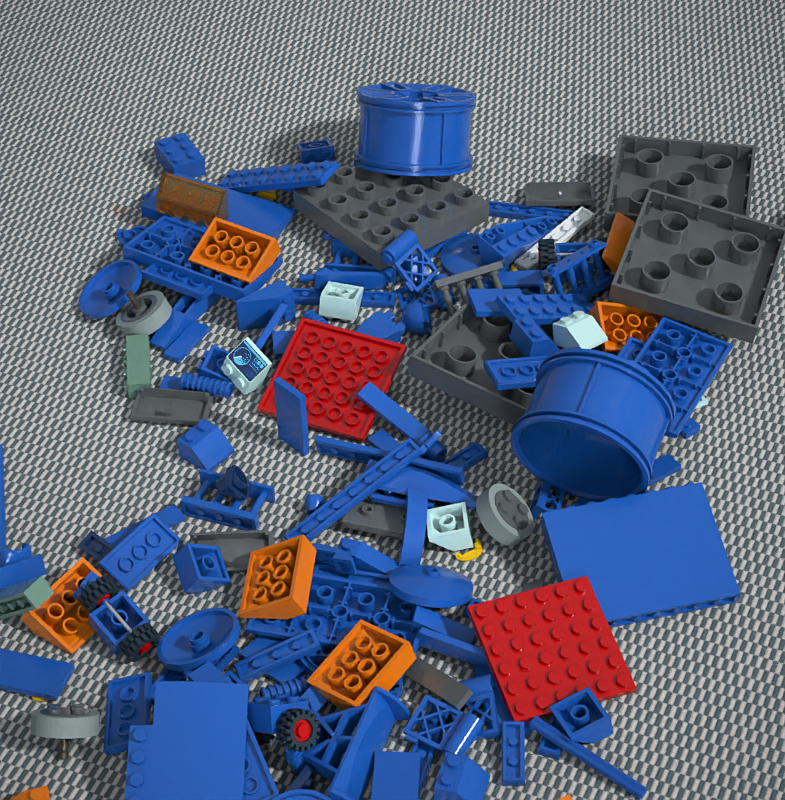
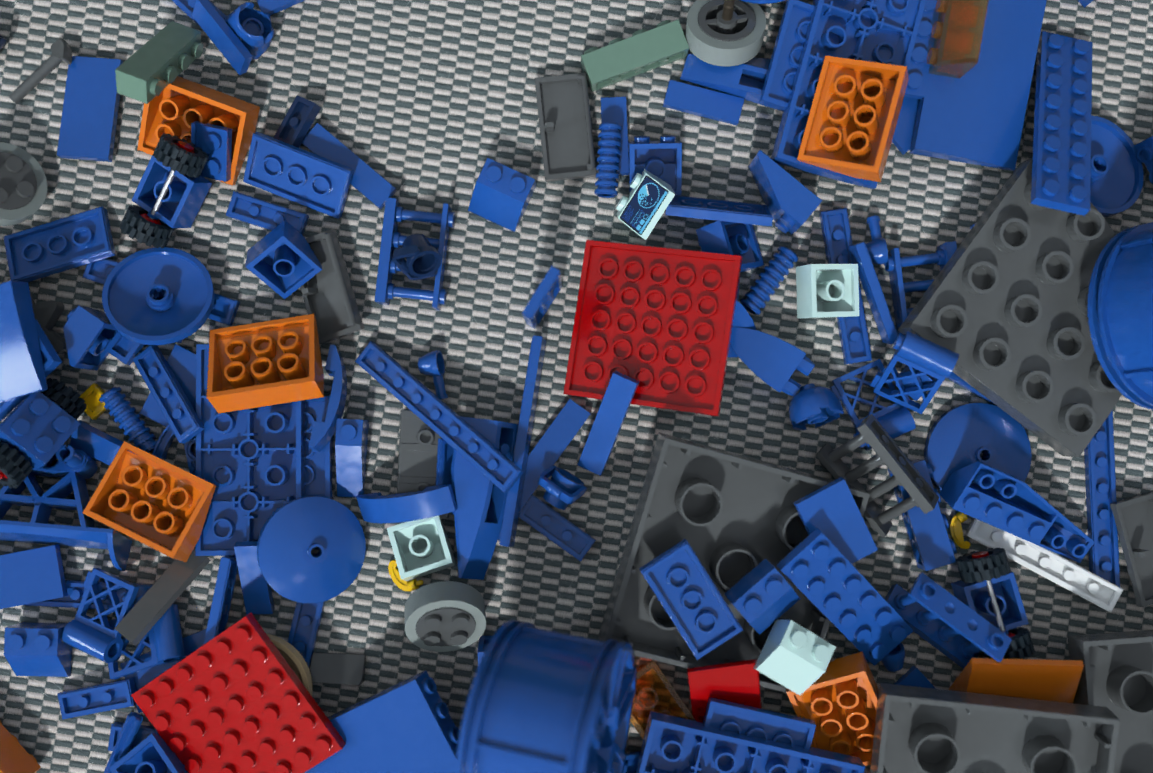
camera: 75 degrees right, 45 degrees up
(158, 585) = (264, 213): none -> blue tile

